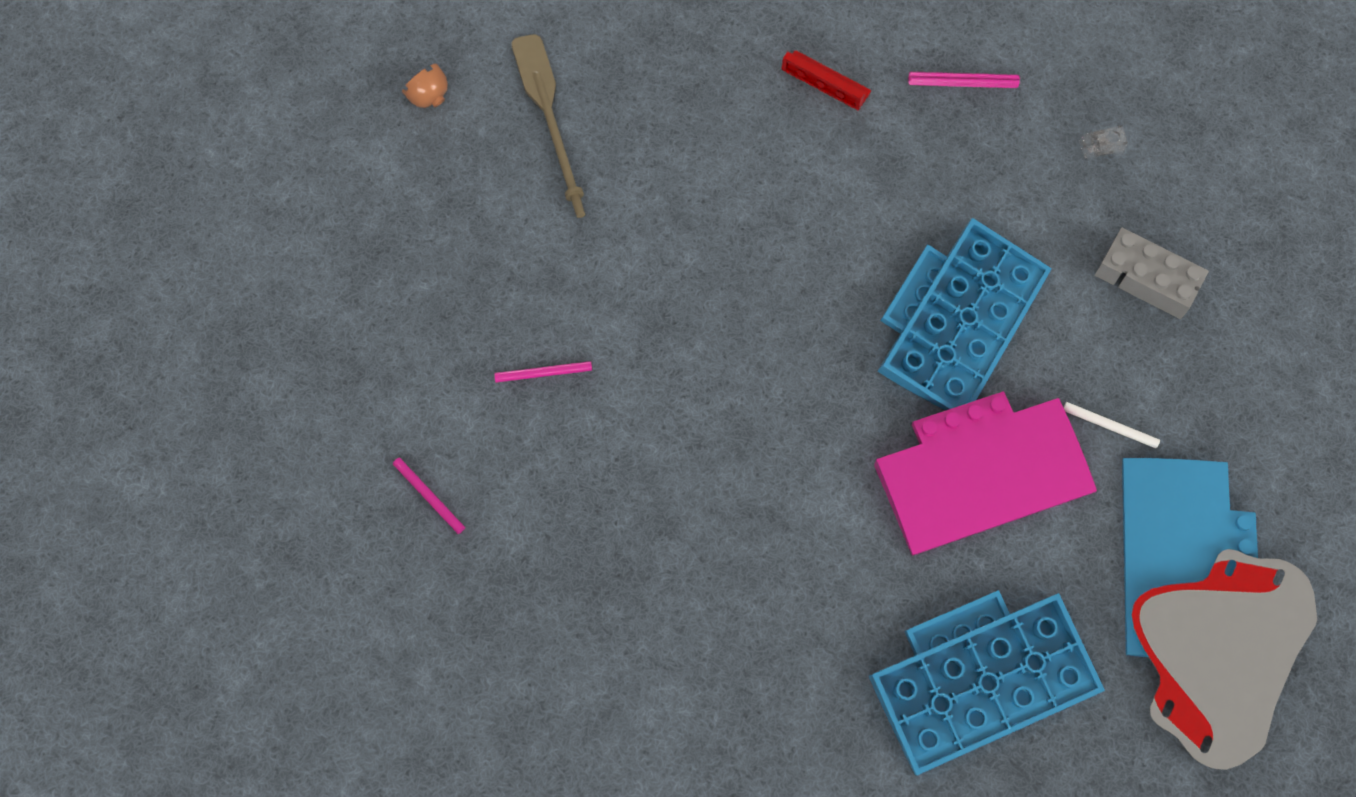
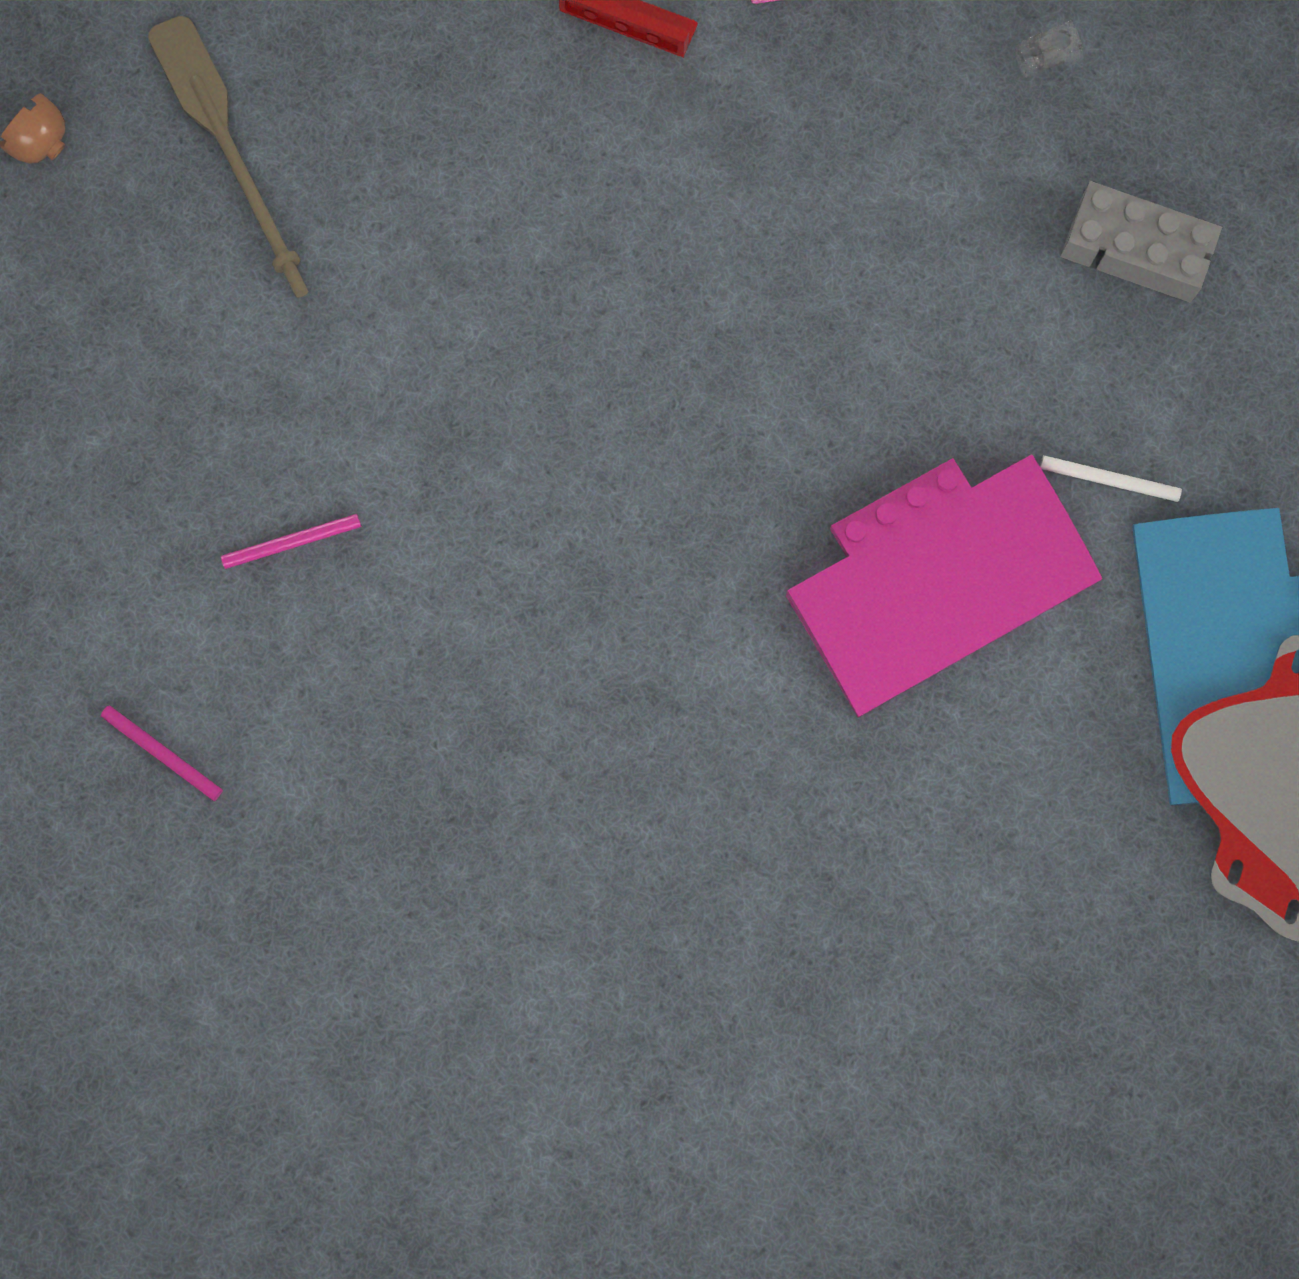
camera: 10 degrees left, 10 degrees up
(959, 315) = (875, 351): dark azure slope -> none
(983, 677) = (979, 872): dark azure slope -> none

